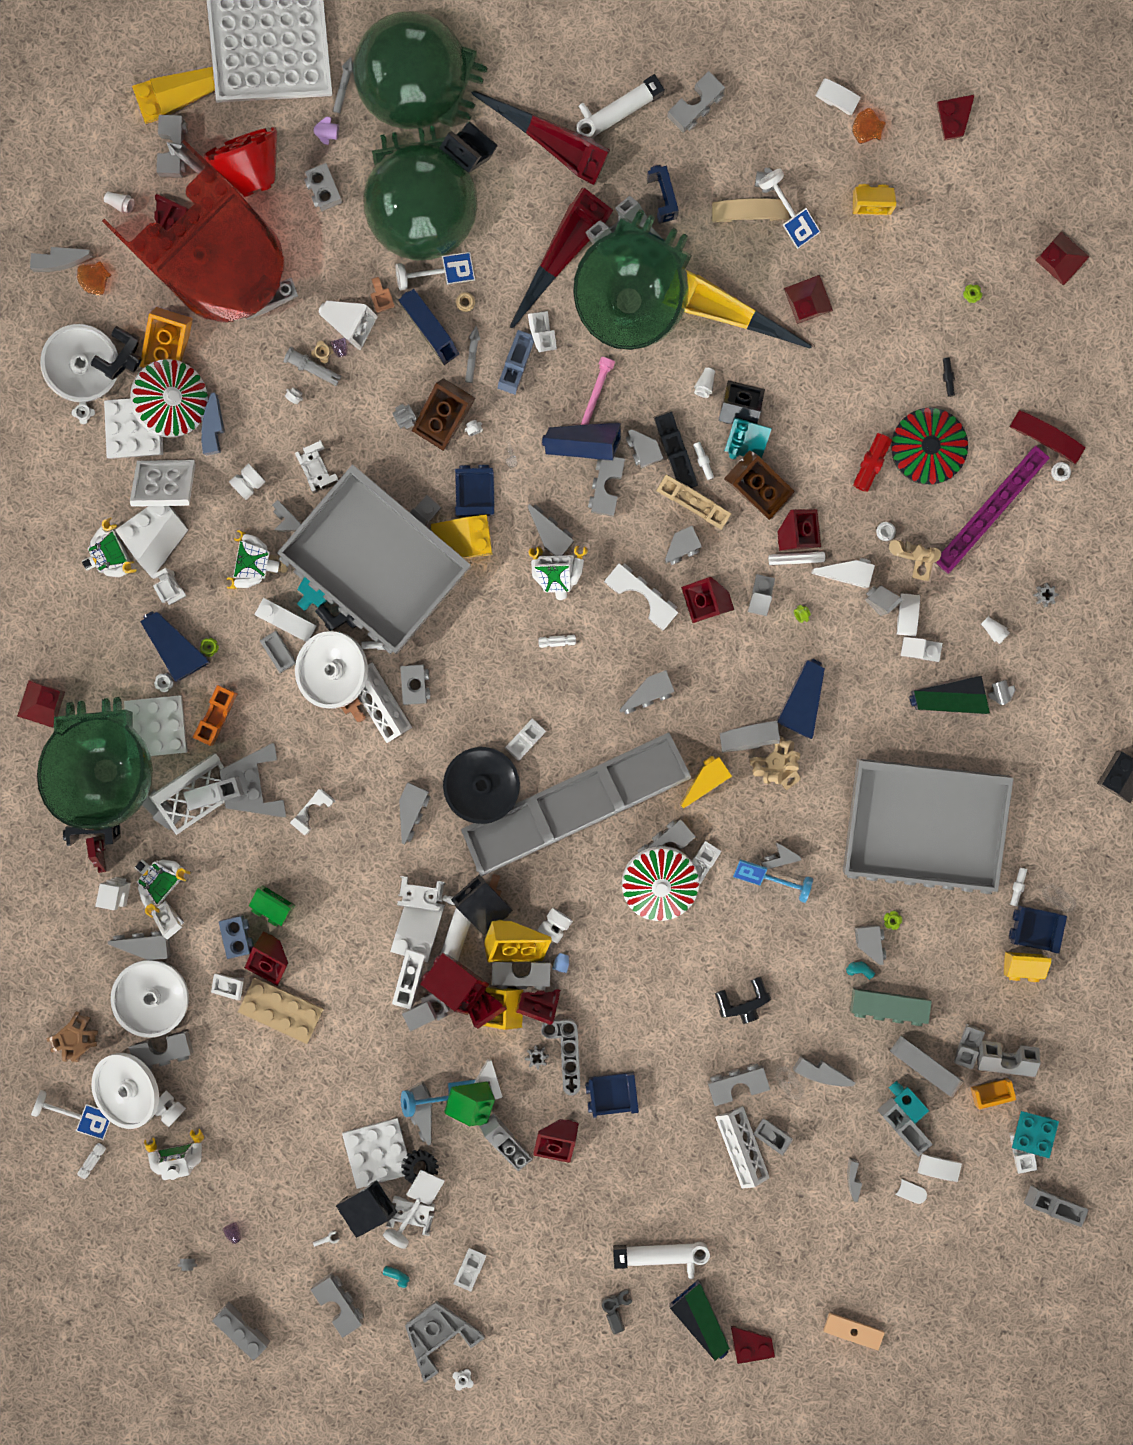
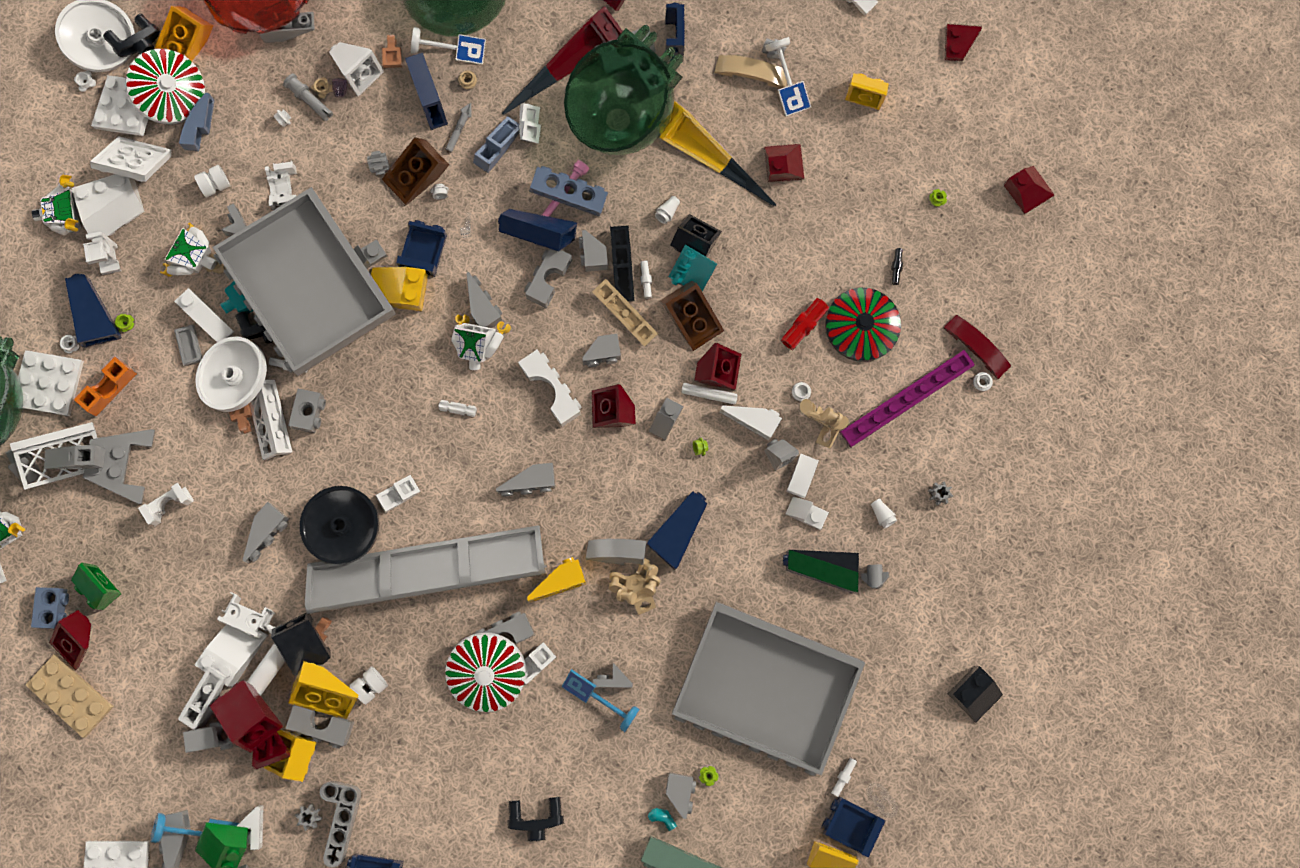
camera: 10 degrees right, 10 degrees down
(227, 986) = (25, 656): white slope -> none
(539, 1005) = (326, 762): dark red wing -> none
(561, 963) = (364, 726): light blue hose -> none
(633, 390) = (575, 200): none -> sand blue brick
(867, 126) = (878, 28): clear orange animal -> none

